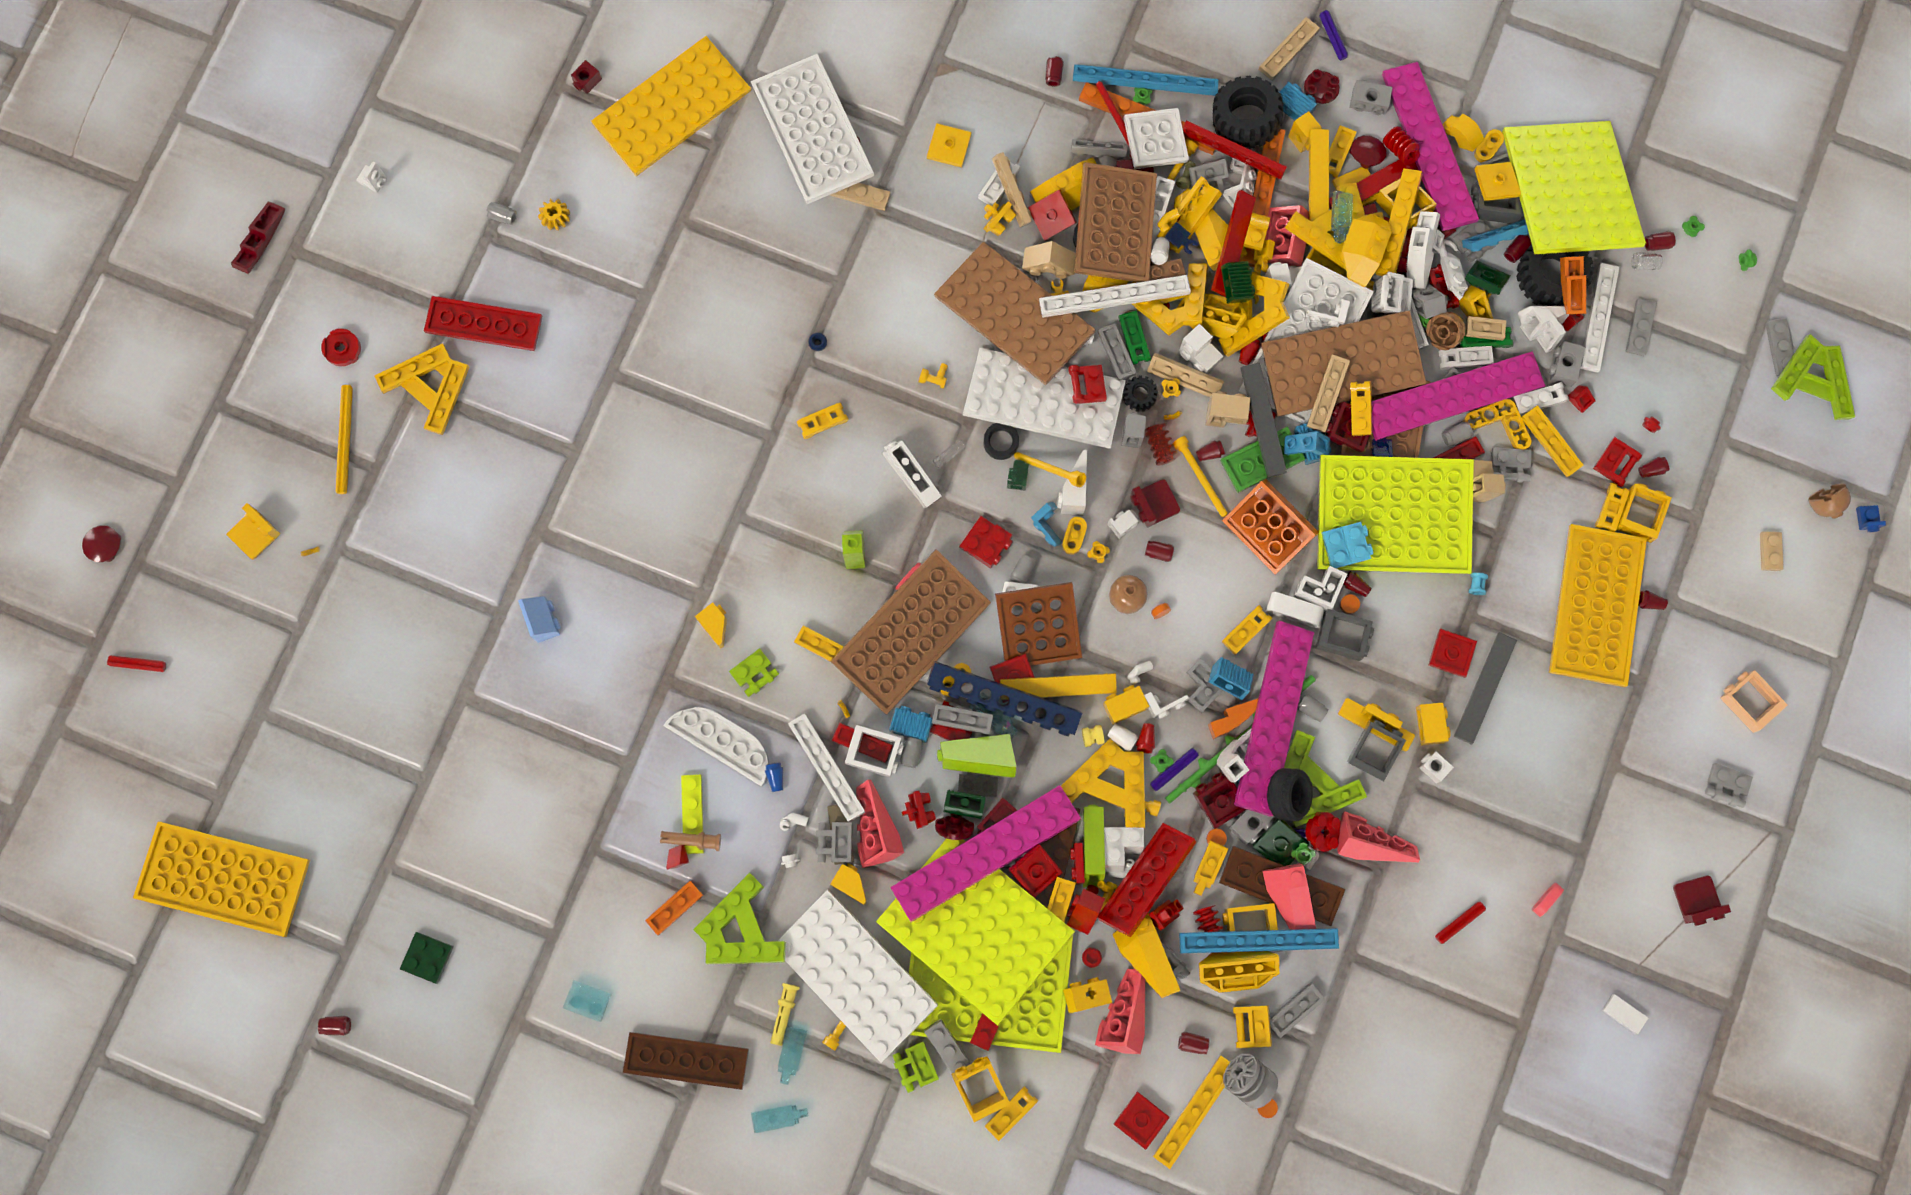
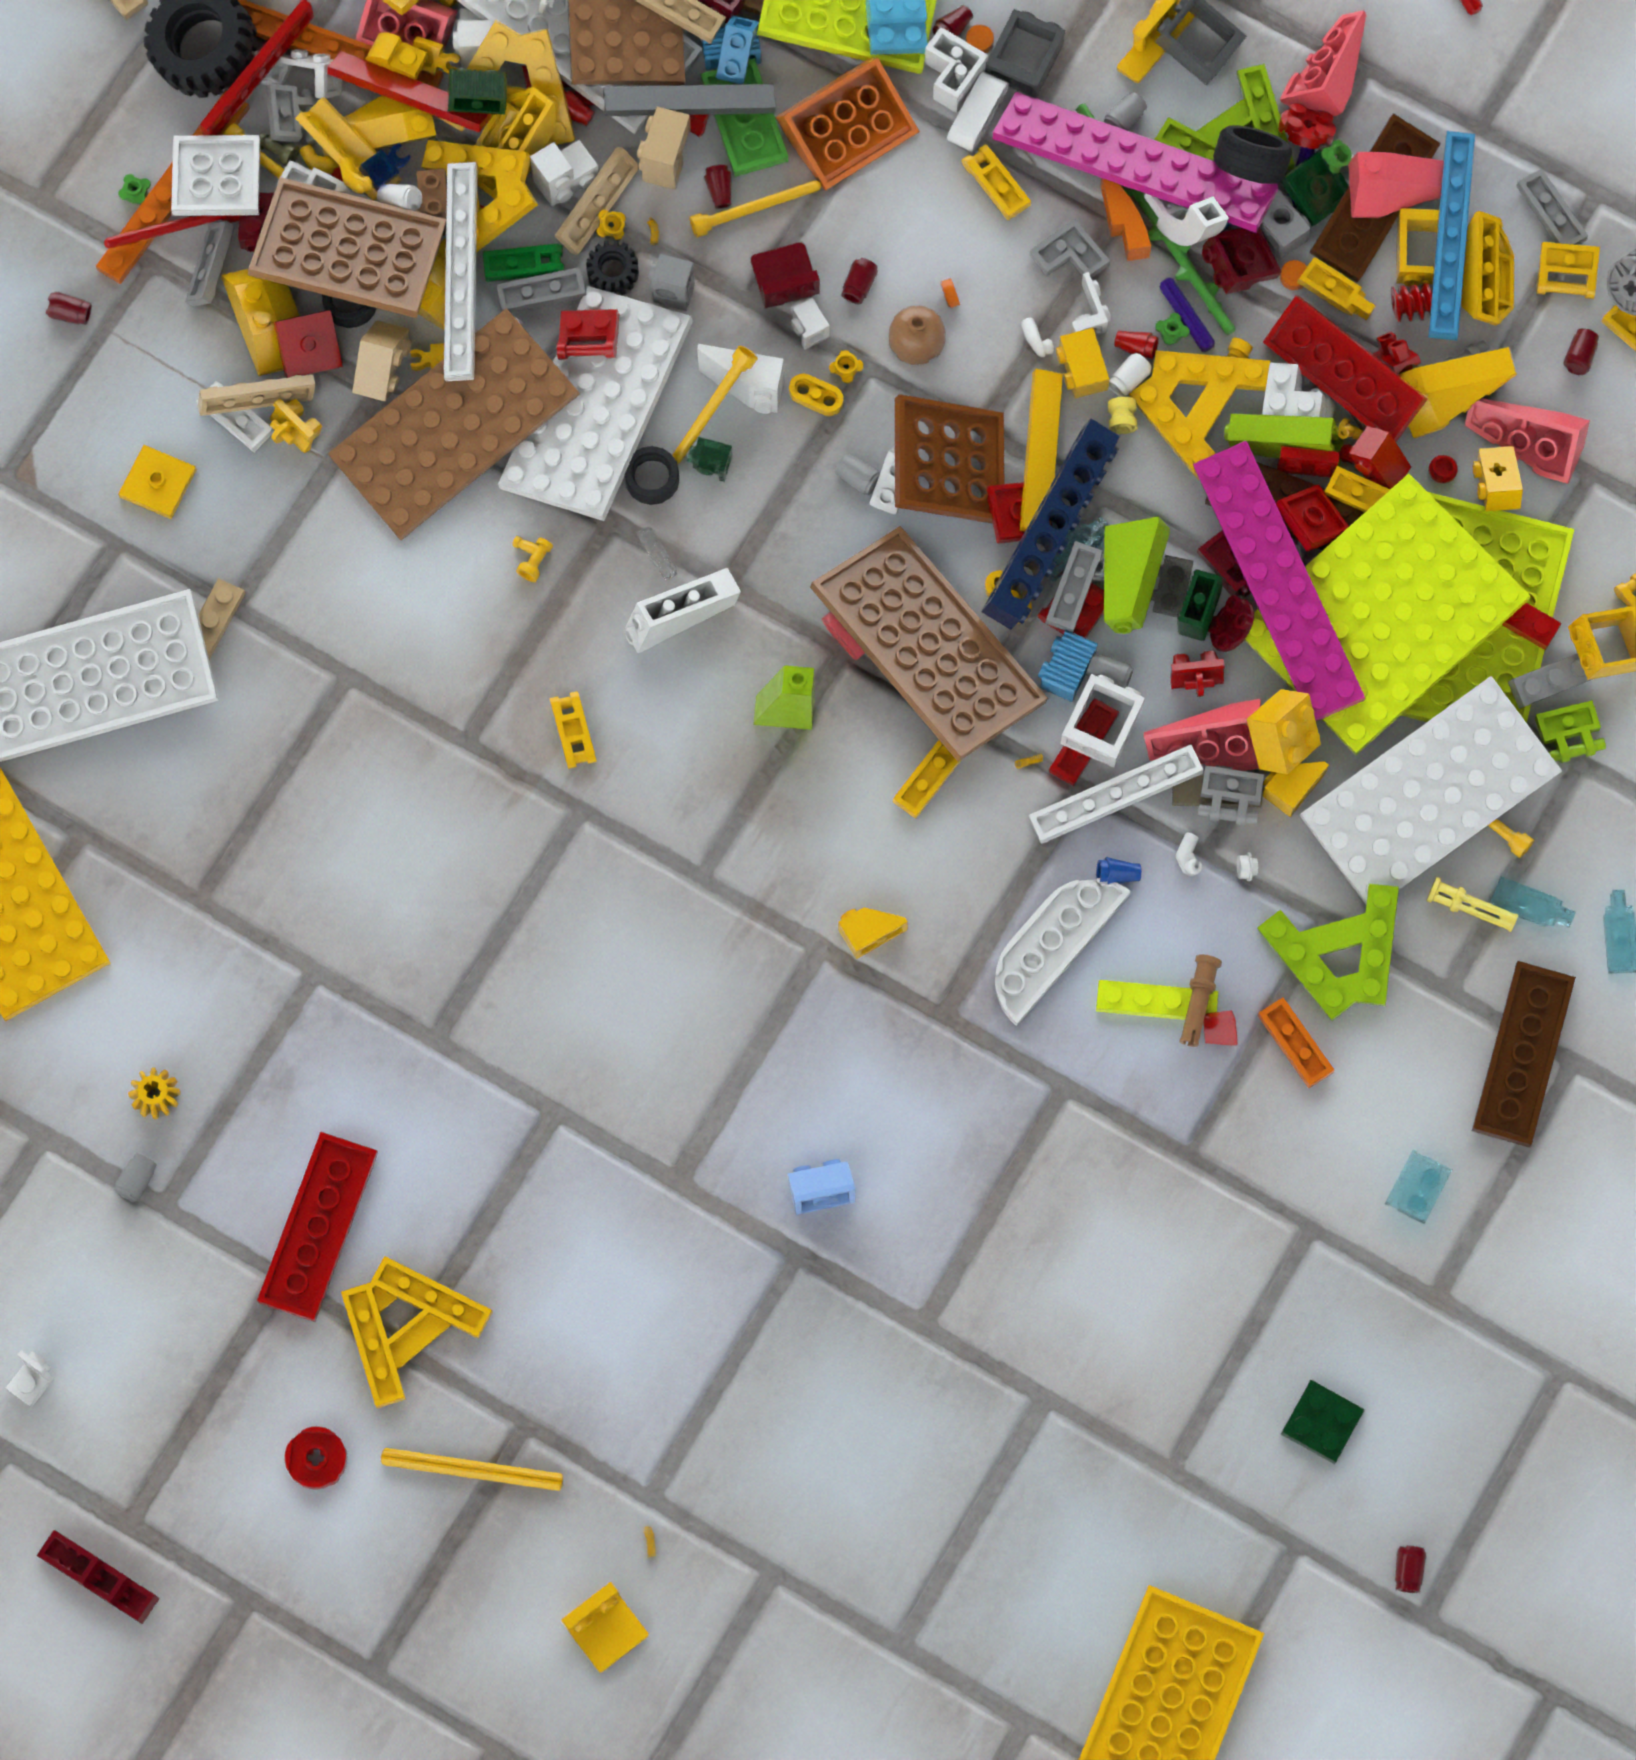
camera: 80 degrees left, 5 degrees down
(750, 668) = (945, 888): lime plate -> none
(817, 336) = (437, 714): dark blue plate -> none
(879, 870) = (1284, 731): none -> yellow brick
(986, 542) = (805, 519): red plate -> none
(1046, 513) = (777, 425): dark azure bracket -> none
(1145, 80) = (110, 181): dark azure tile -> none
(1160, 444) = (697, 249): clear red piece -> none
(1231, 678) = (1068, 210): dark azure brick -> none

